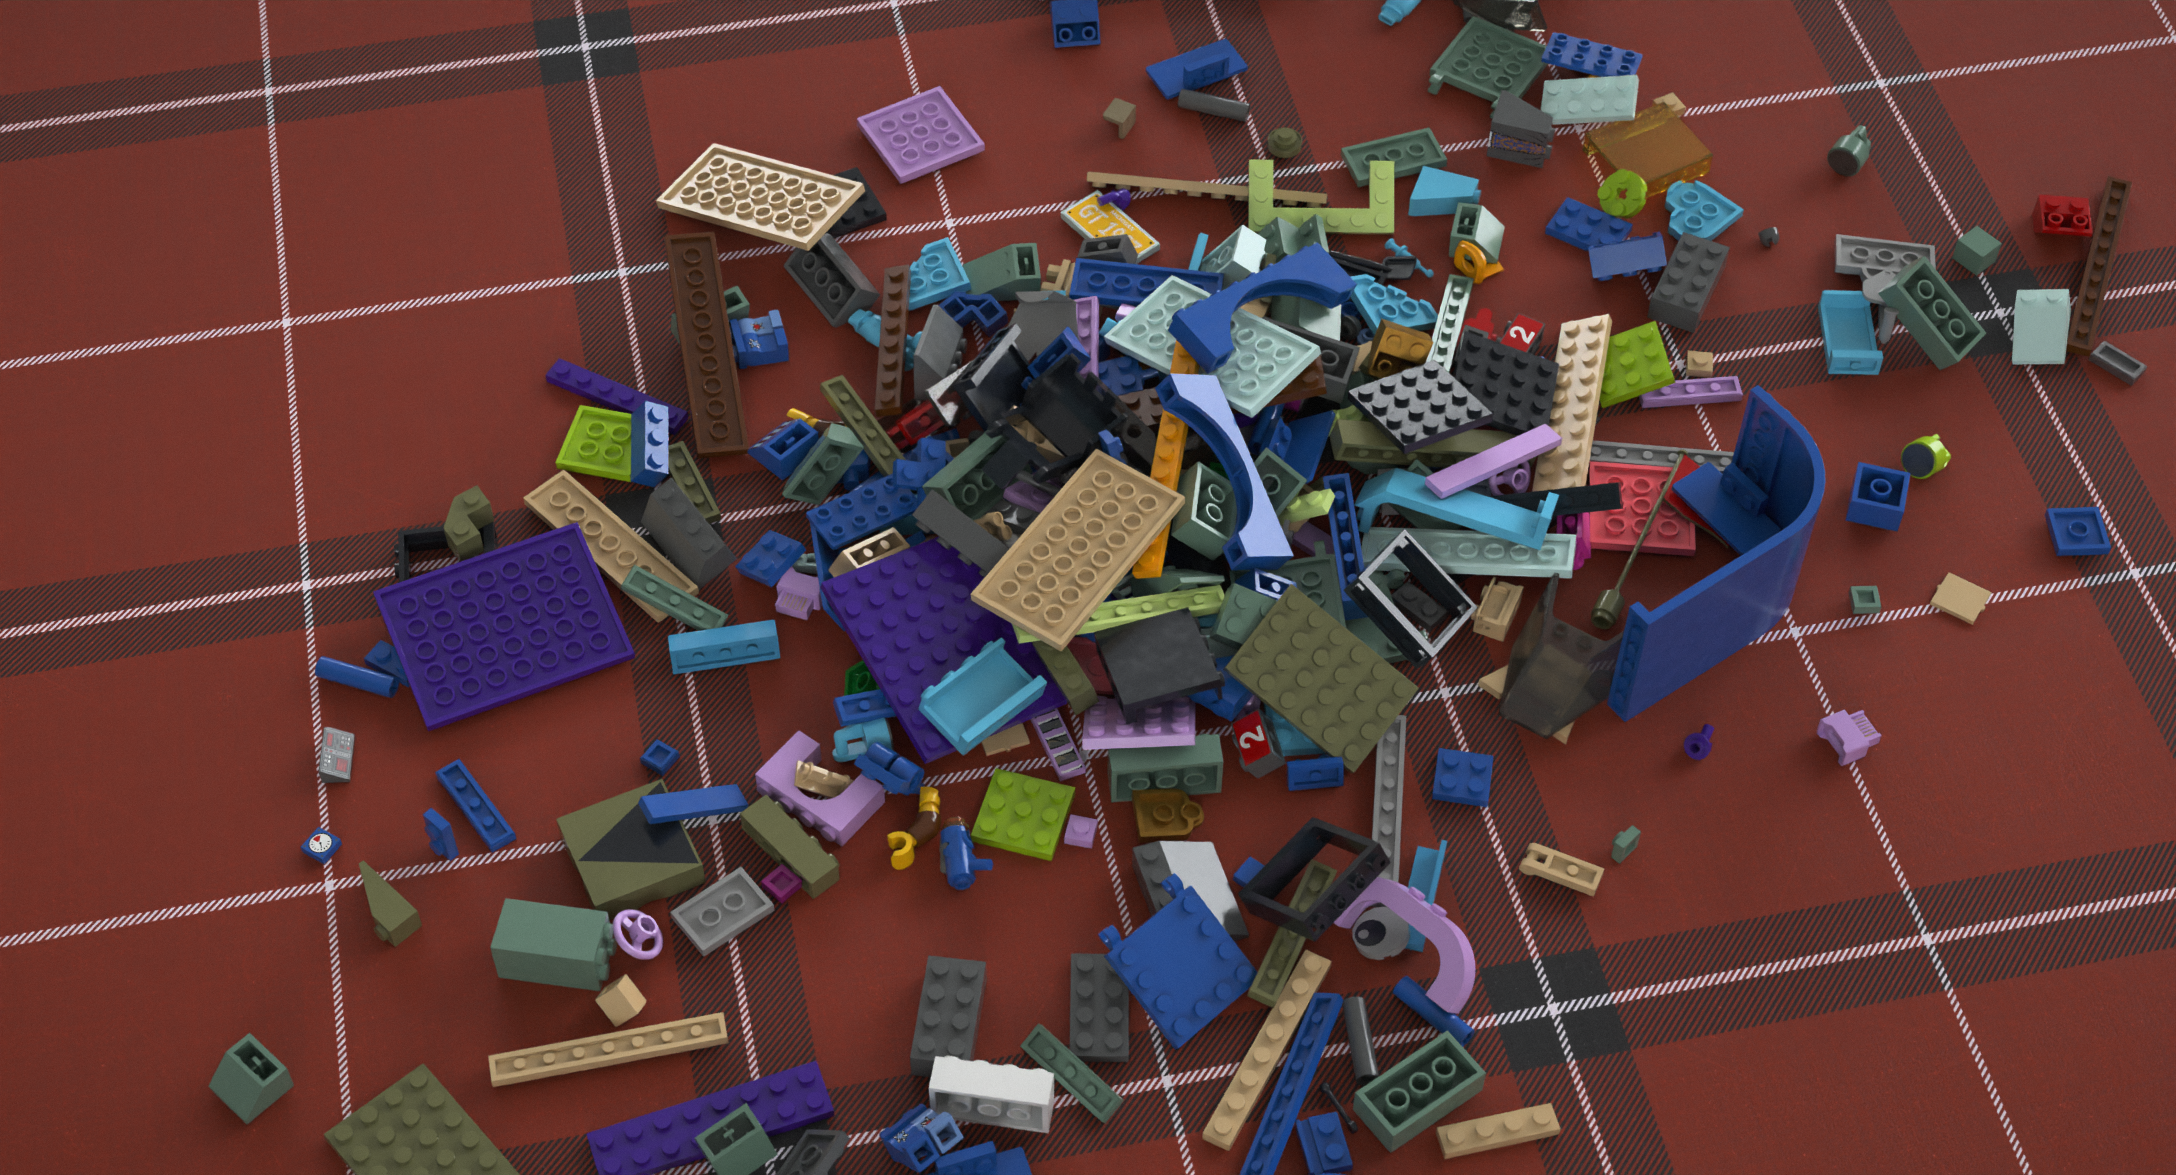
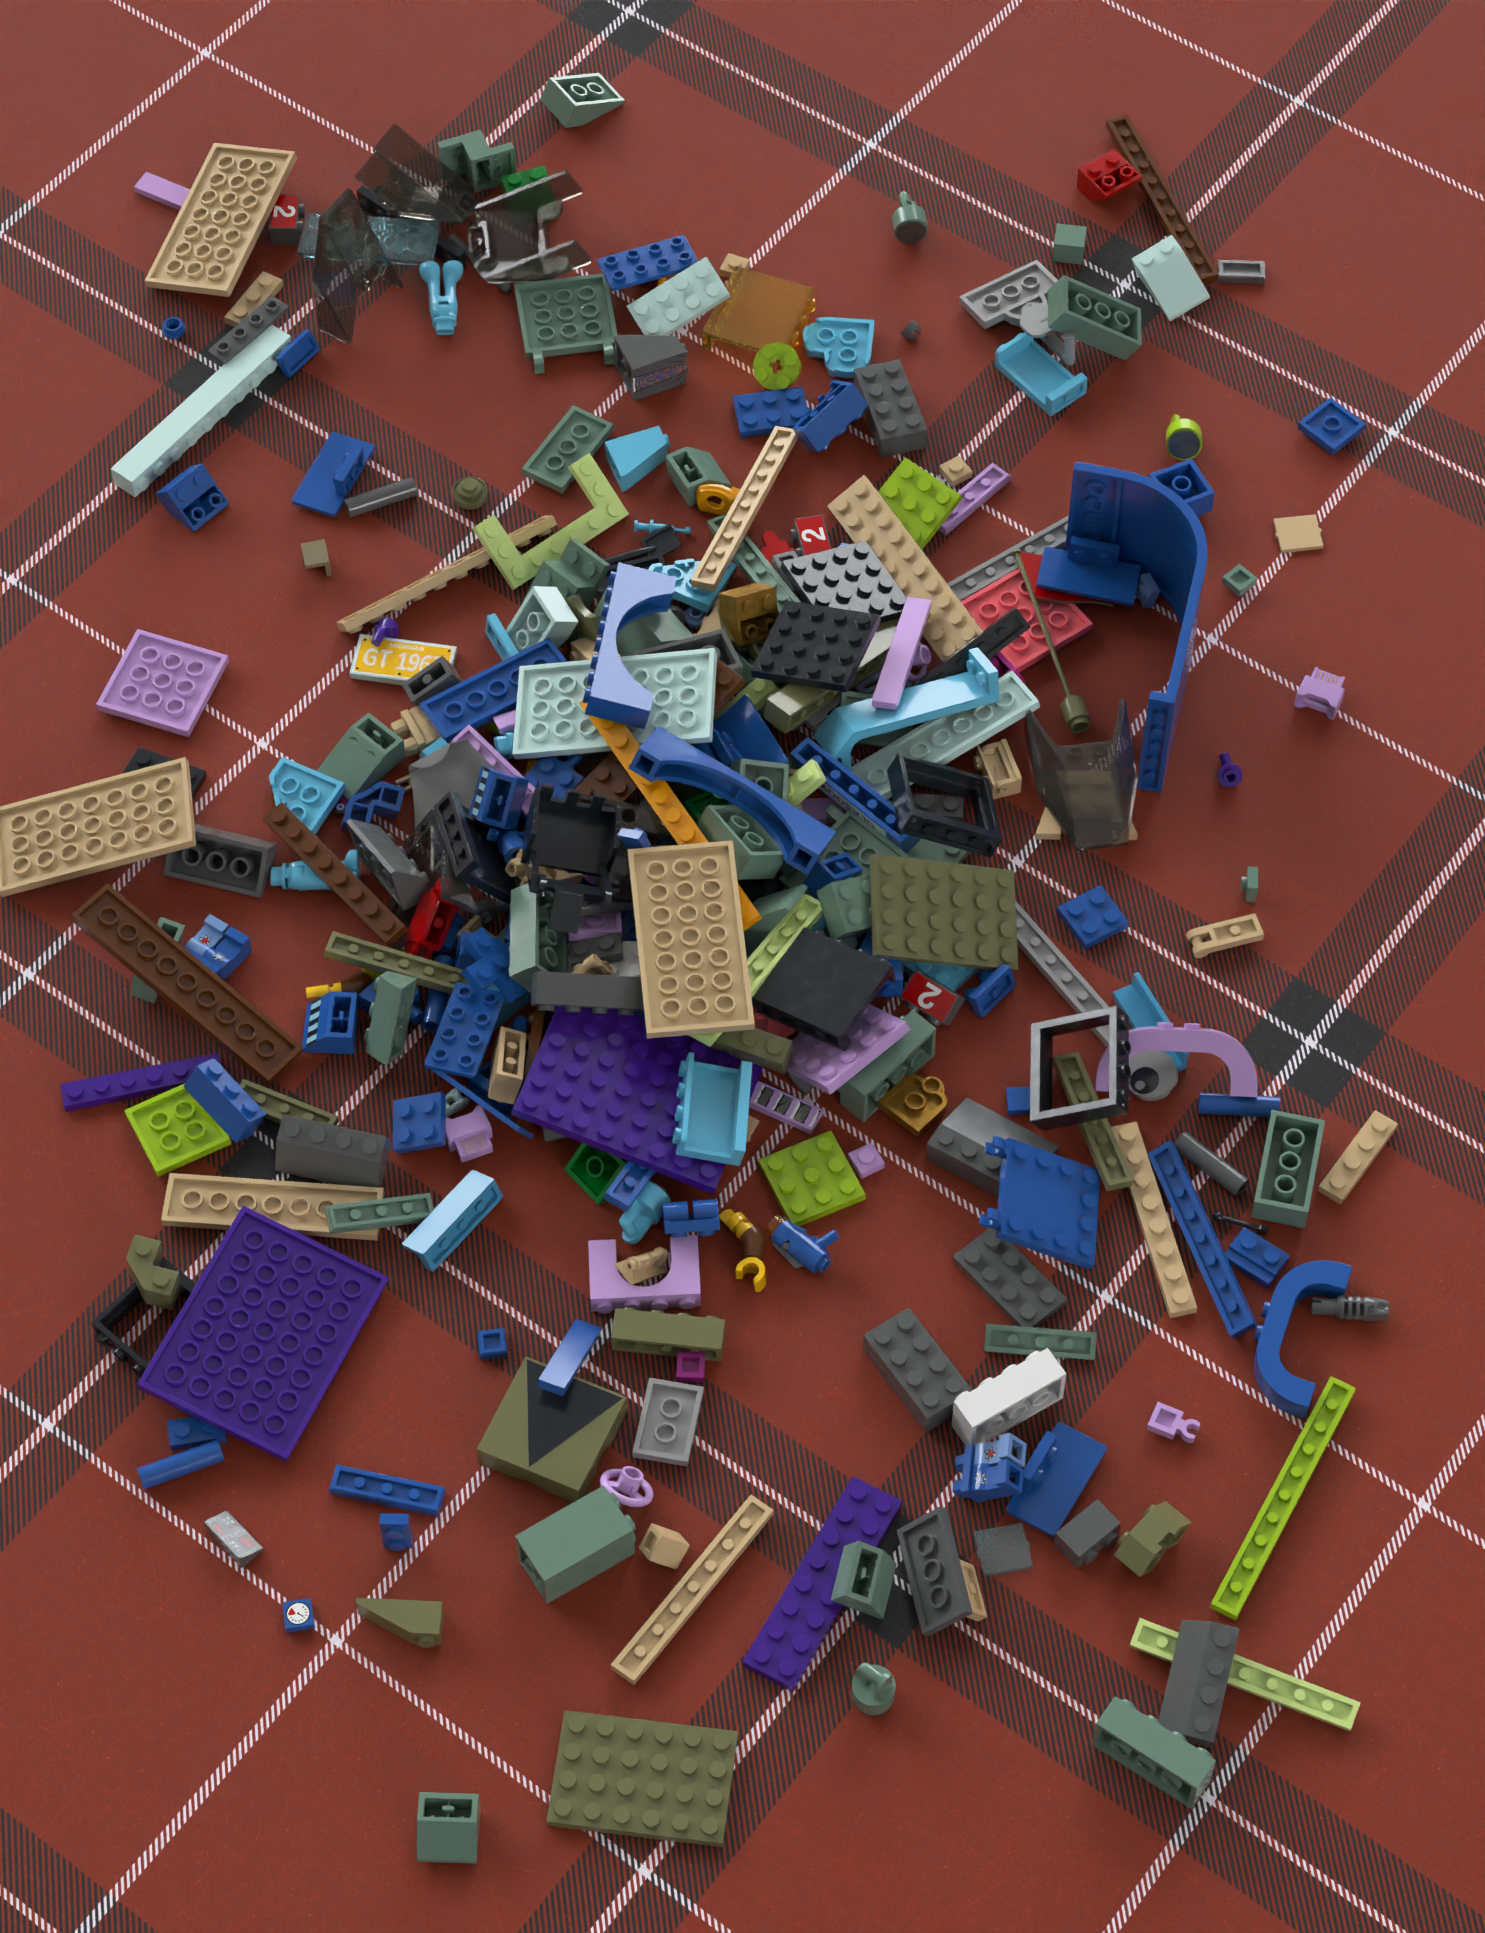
camera: 40 degrees left, 5 degrees up
(1483, 280) = (744, 509): none -> tan plate

